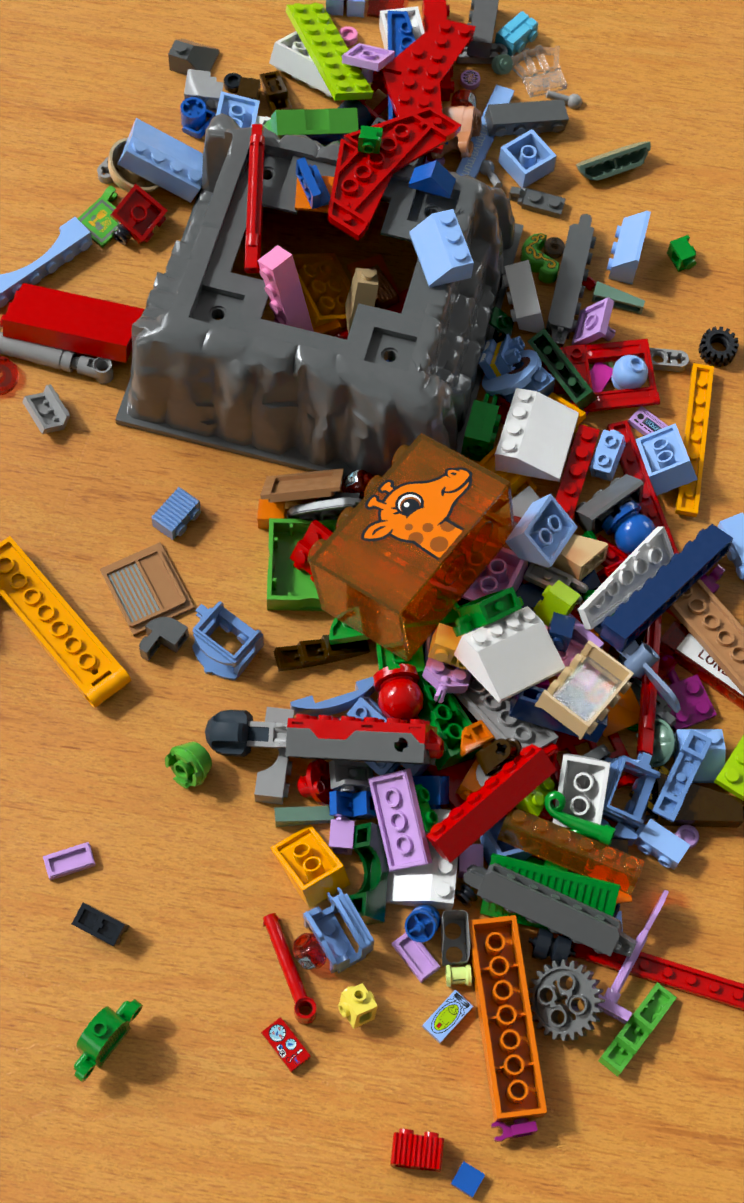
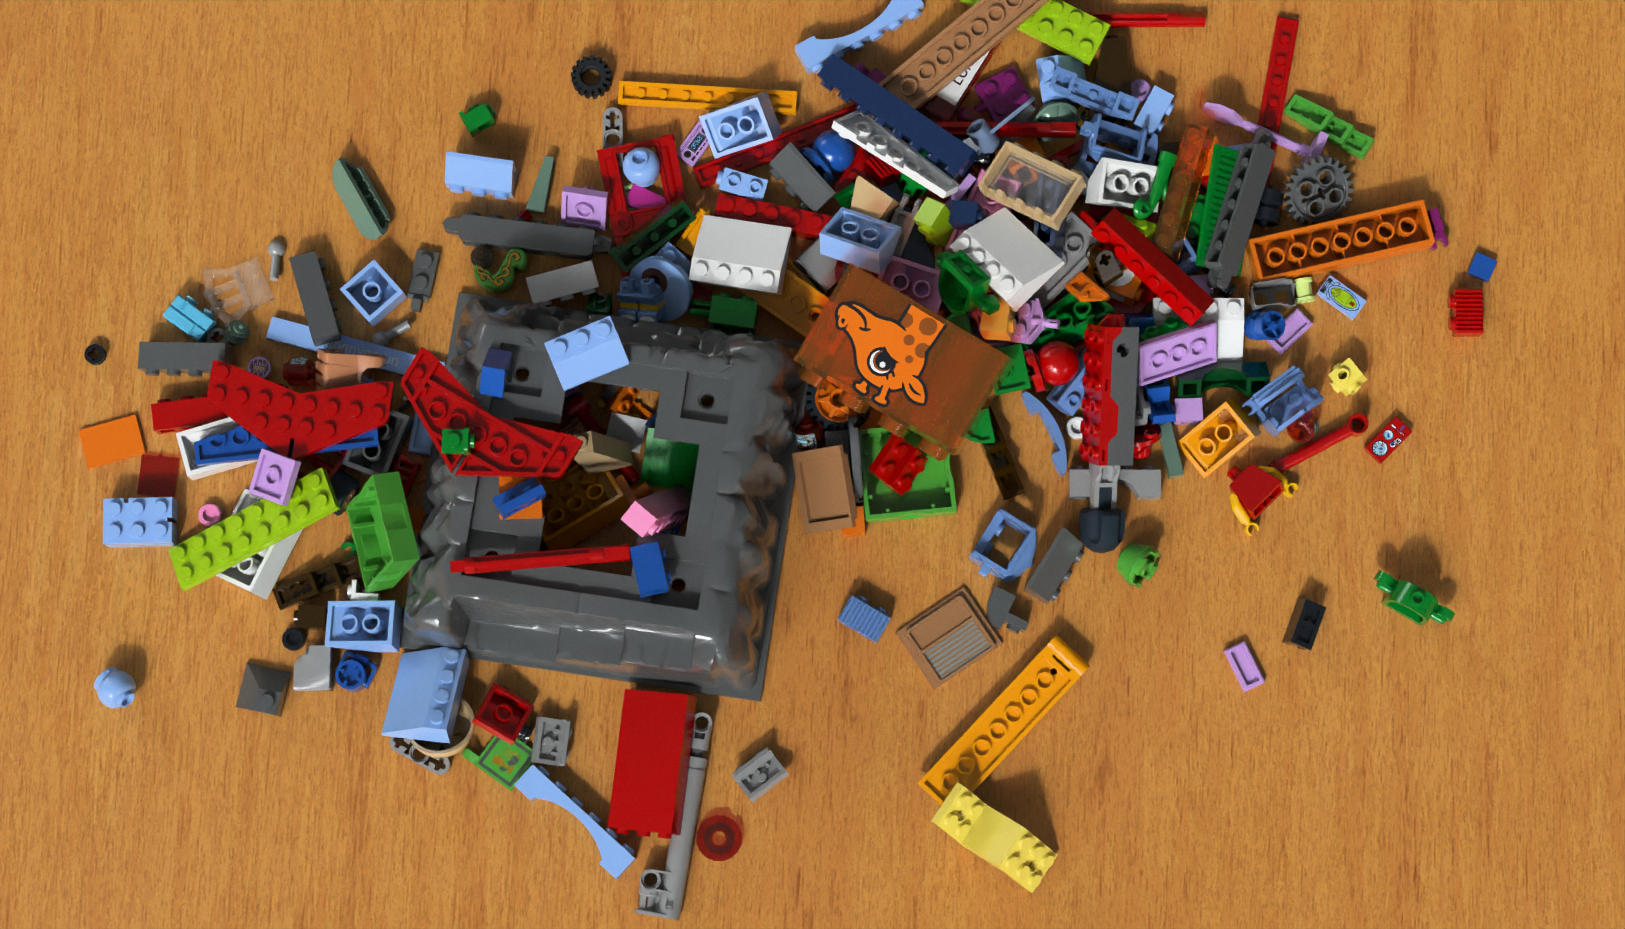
camera: 90 degrees left, 15 degrees up
(109, 251) = (551, 741): none -> light grey bracket
(198, 683) = (1055, 567): none -> dark grey slope
(231, 279) = (649, 569): none -> blue brick
(248, 892) = (1254, 491): none -> red torso

